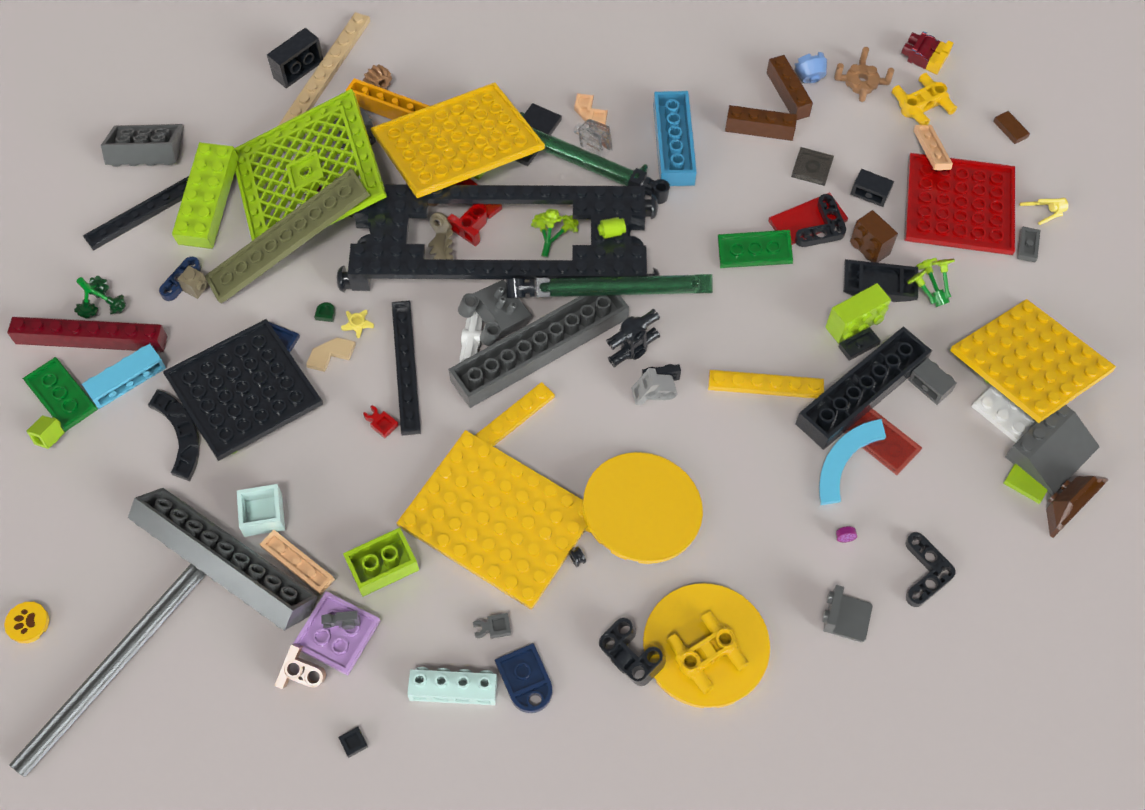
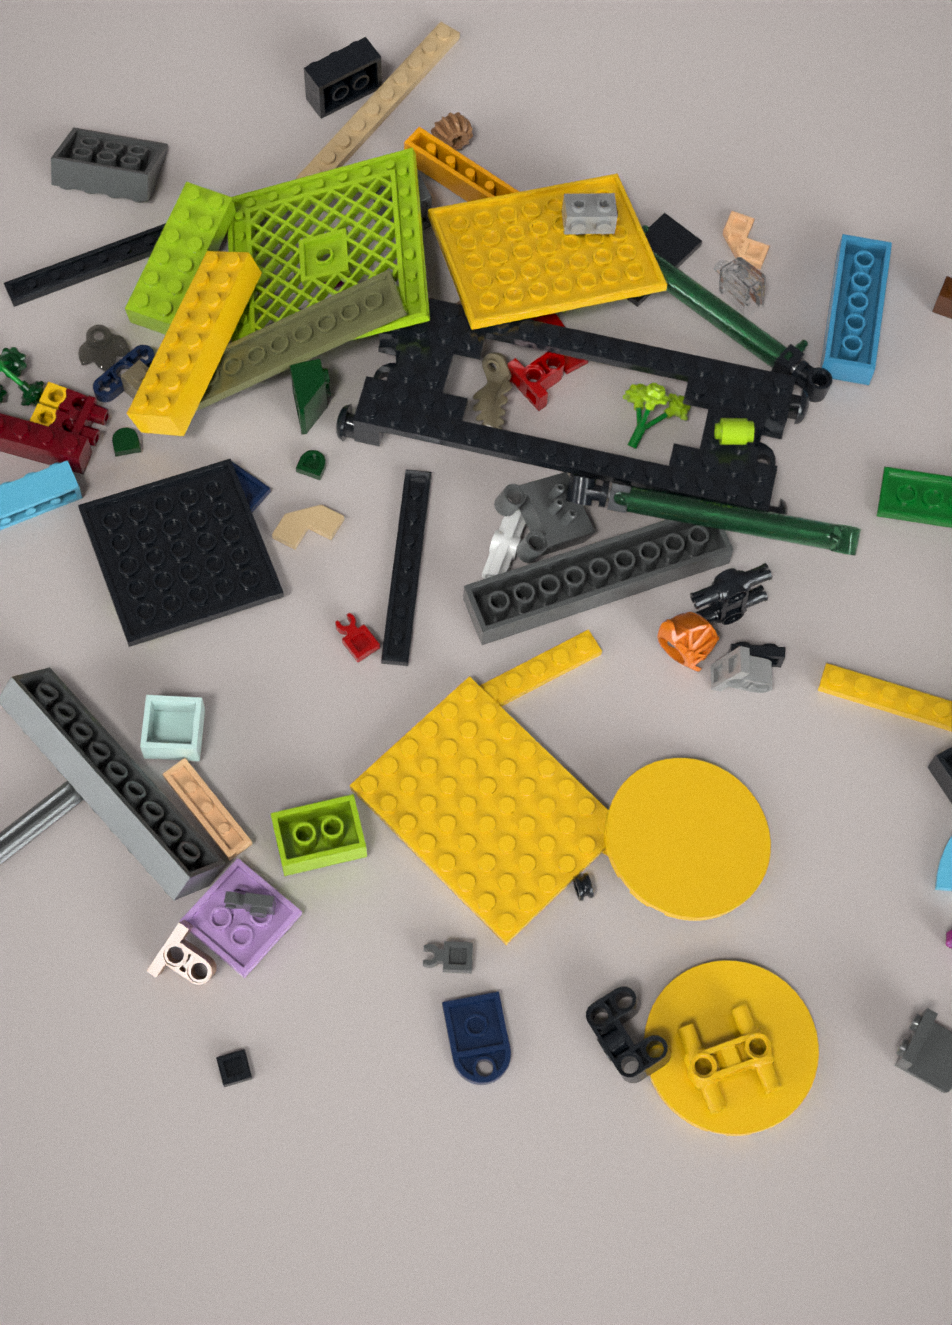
camera: 10 degrees right, 5 degrees up
(146, 310) = (70, 412): none -> dark red hips
(162, 267) = (102, 351): none -> clear smoke plate
(185, 430) = (93, 594): black tile -> none
(189, 324) = (125, 442): none -> dark green tile
(225, 247) = (194, 343): none -> yellow brick
(314, 263) = (310, 392): none -> dark green slope
(357, 322) = (352, 489): light yellow animal -> none
(452, 686) = (379, 1025): light aqua brick -> none
(481, 108) = (589, 213): none -> light grey brick
(613, 371) = (690, 636): none -> orange piece

